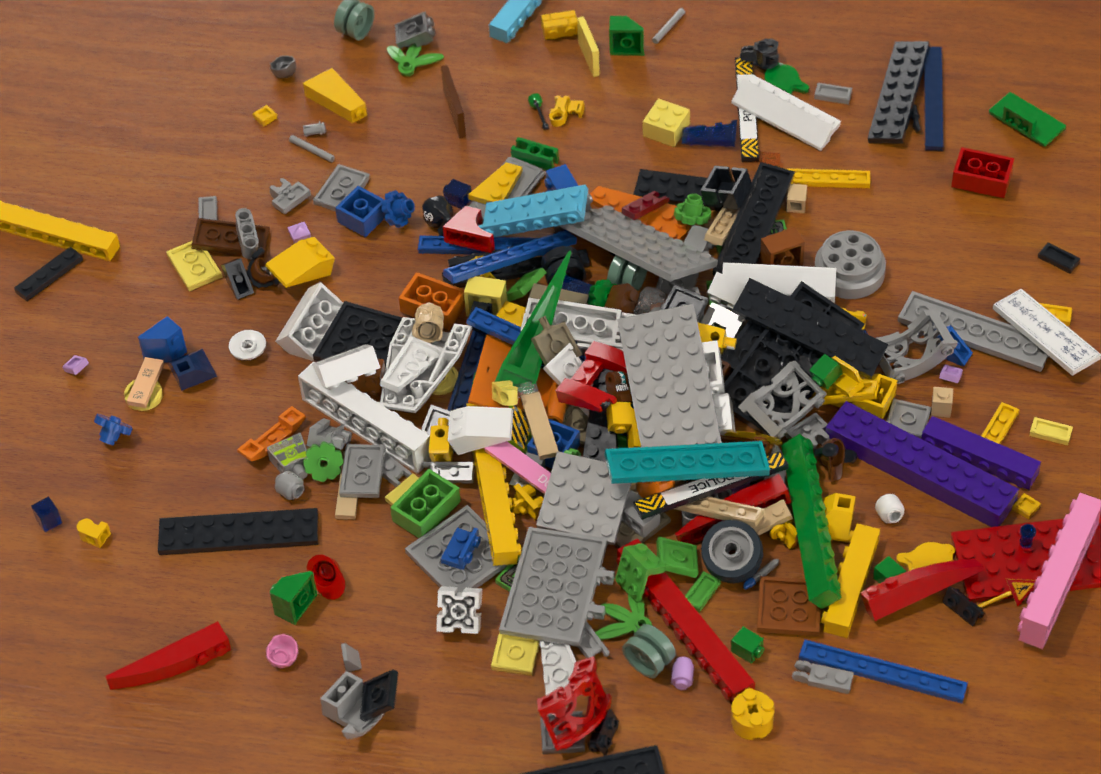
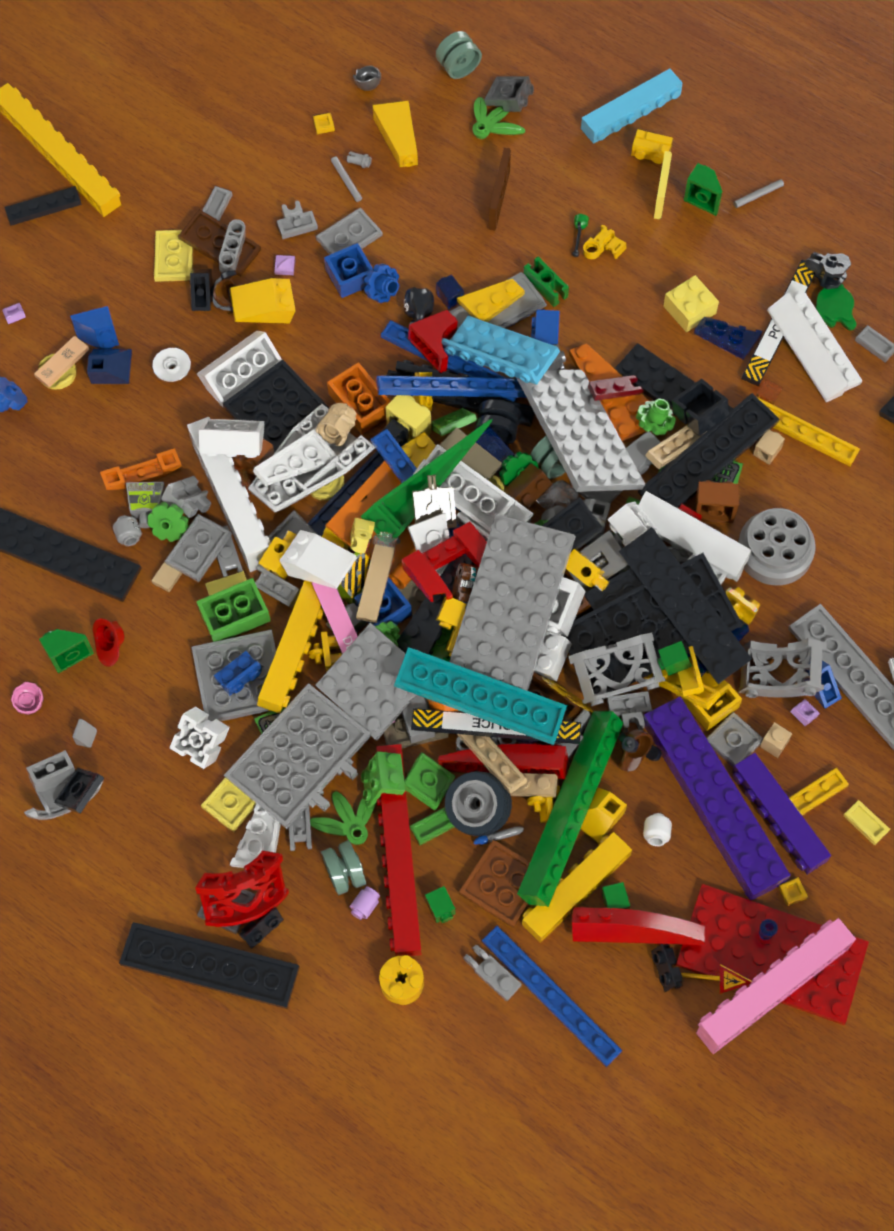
camera: 25 degrees right, 15 degrees up
(926, 554) = (664, 899): yellow tile -> none

